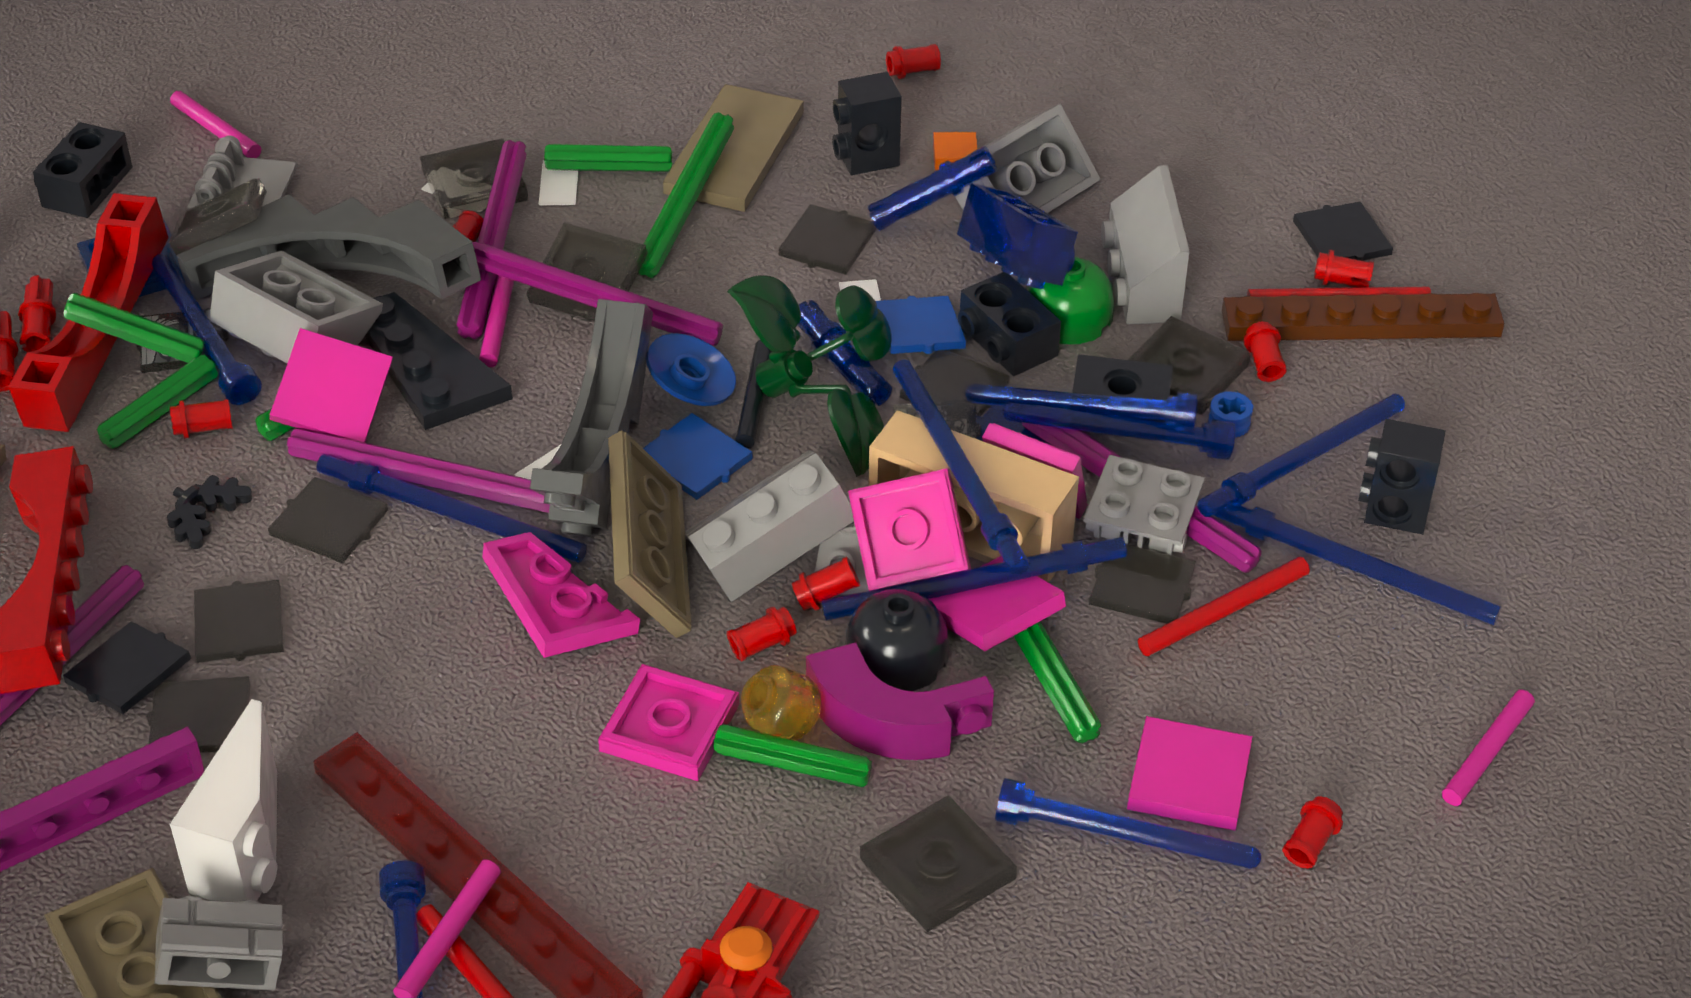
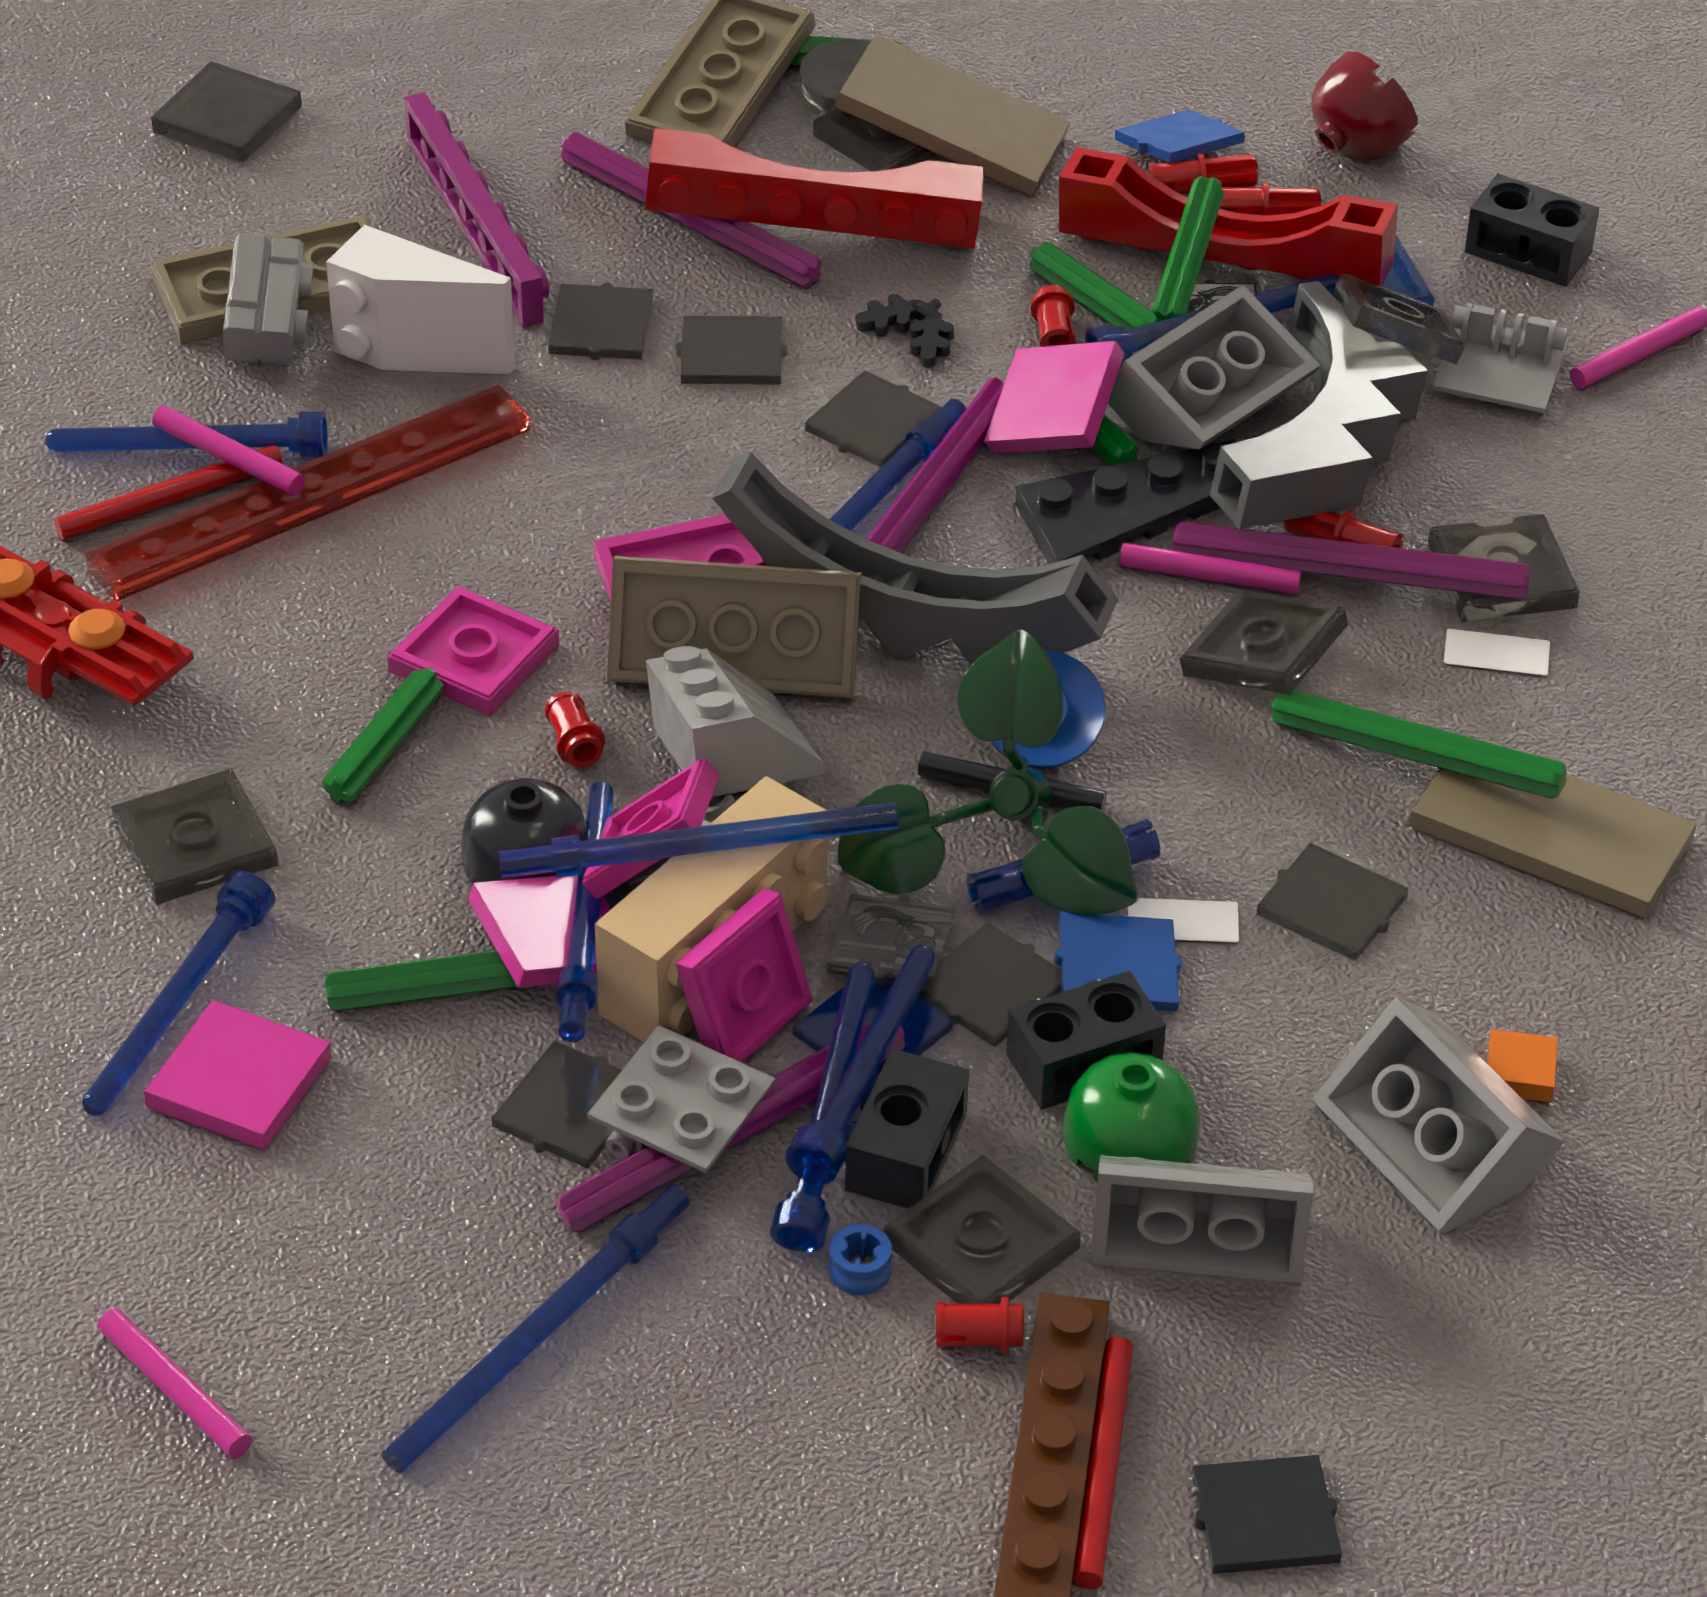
camera: 100 degrees right, 0 degrees up
(127, 667) = (680, 270): black piece -> none
(589, 291) = (1197, 631): magenta axle -> none
(608, 158) = (1528, 686): green axle -> none
(698, 455) = (906, 719): blue piece -> none
(781, 702) = (441, 714): clear yellow head -> none
(825, 584) = (630, 779): red pin -> none
(868, 123) = (1537, 932): black brick -> none
(891, 719) = (410, 798): magenta arch -> none
(948, 180) = (1366, 977): clear blue pin -> none
(1017, 236) = (1210, 1020): clear blue brick -> none
(1223, 606) = (501, 1174): red bar -> none
(1243, 486) = (676, 1205): clear blue bar -> none
(1319, 821) = (110, 1166): red pin -> none
(1343, 270) = (1158, 1456): red pin -> none
(1404, 475) = (632, 1371): black brick -> none

